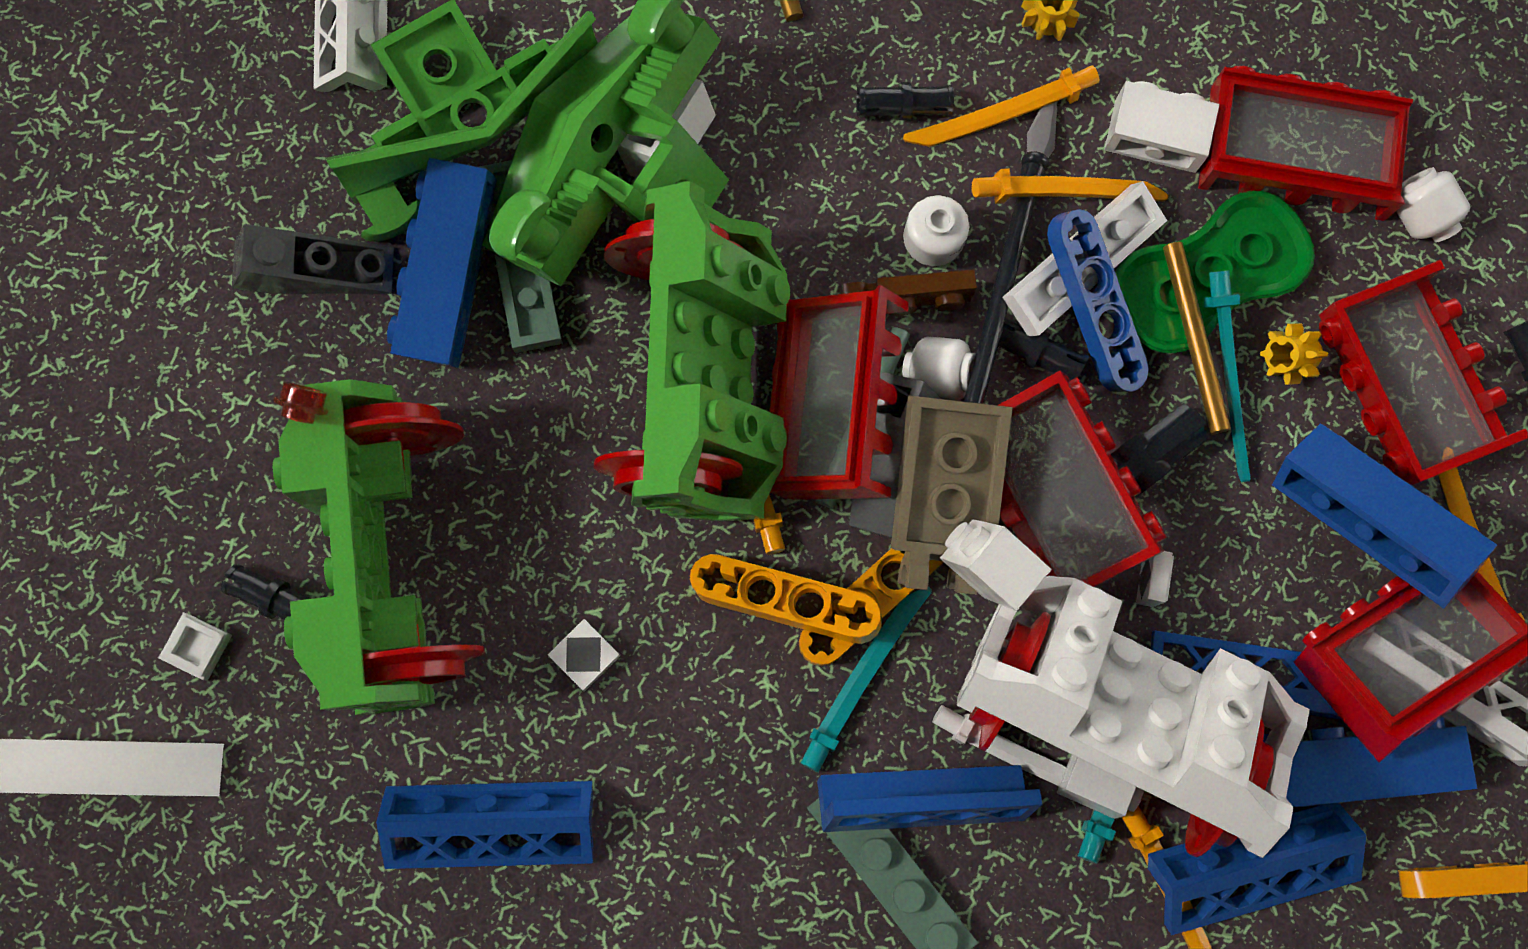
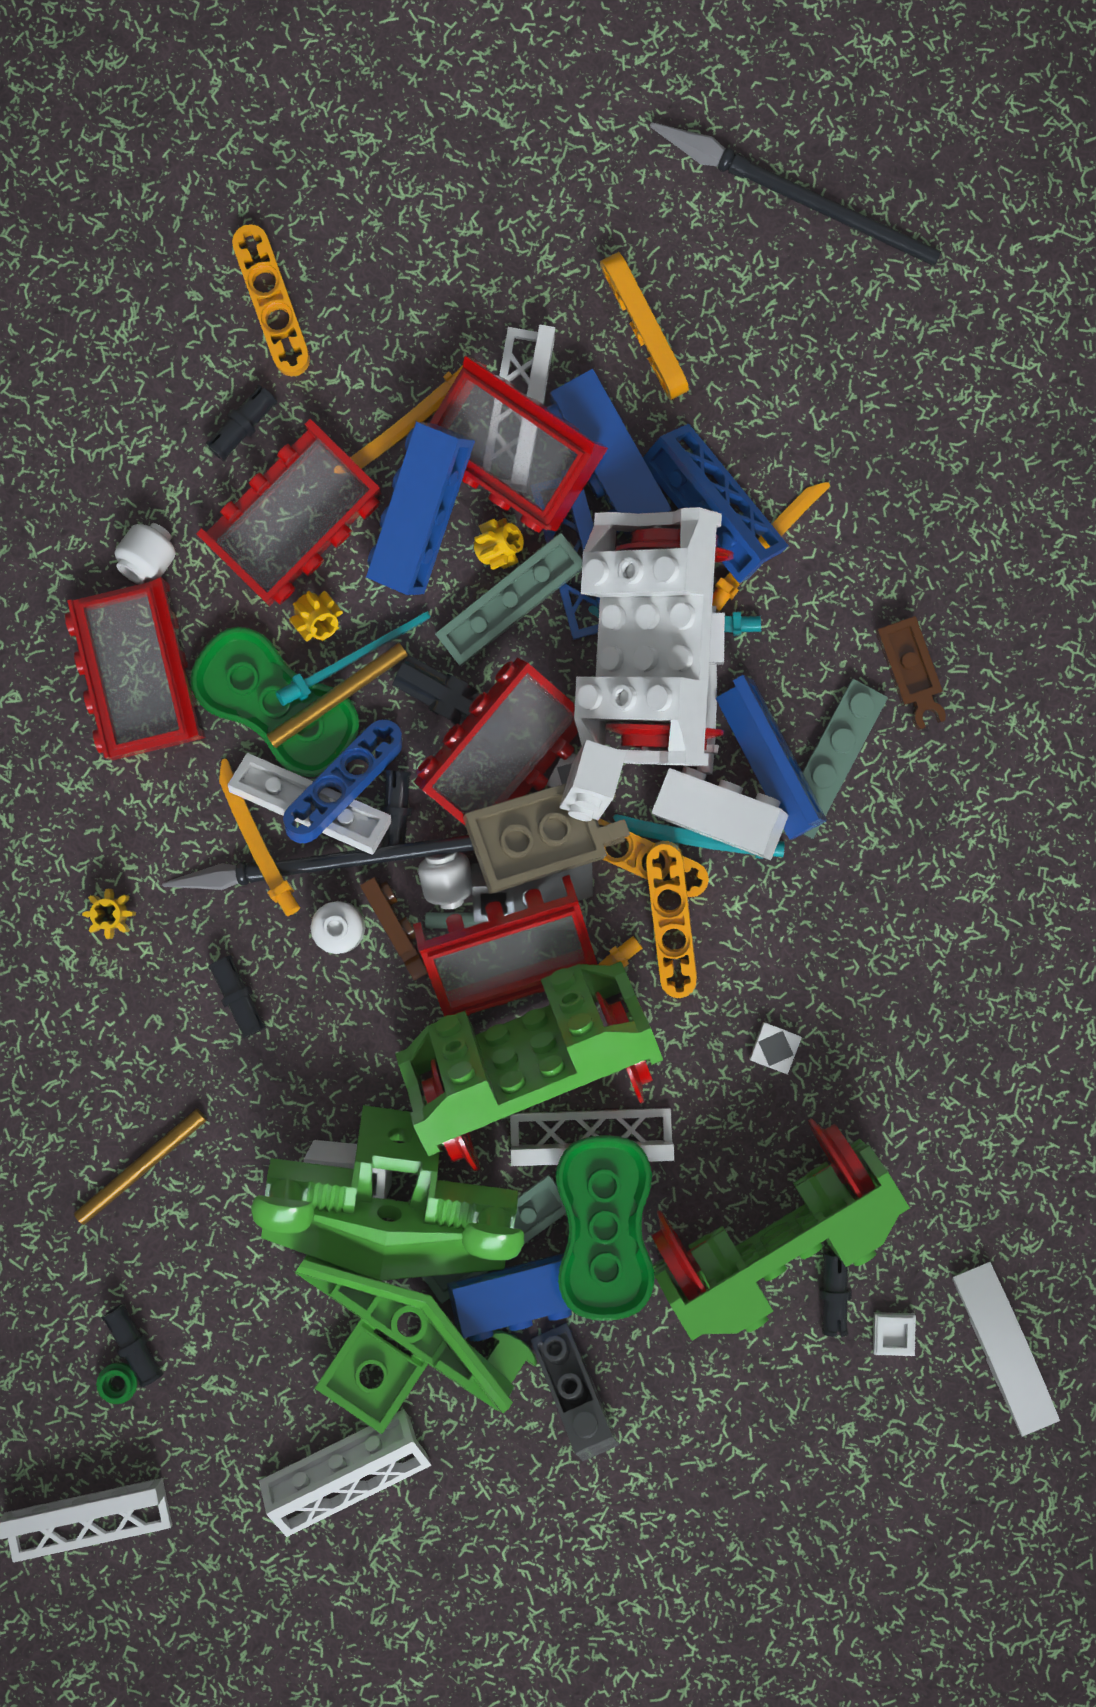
camera: 110 degrees left, 10 degrees up
(301, 402) = (705, 1328): clear red plate -> none
(484, 816) = (920, 1065): blue fence -> none
(510, 378) = (604, 1195): none -> green plate
(563, 396) = (551, 1153): none -> white fence
(886, 709) = (721, 812): none -> white brick
(1067, 86) = (168, 874): light orange sword -> none
(1155, 580) = (538, 653): white tile -> none
(1162, 126) = (170, 787): white brick -> none
(1230, 573) = (510, 599): none -> sand green plate
(1301, 590) = (498, 543): none -> yellow gear

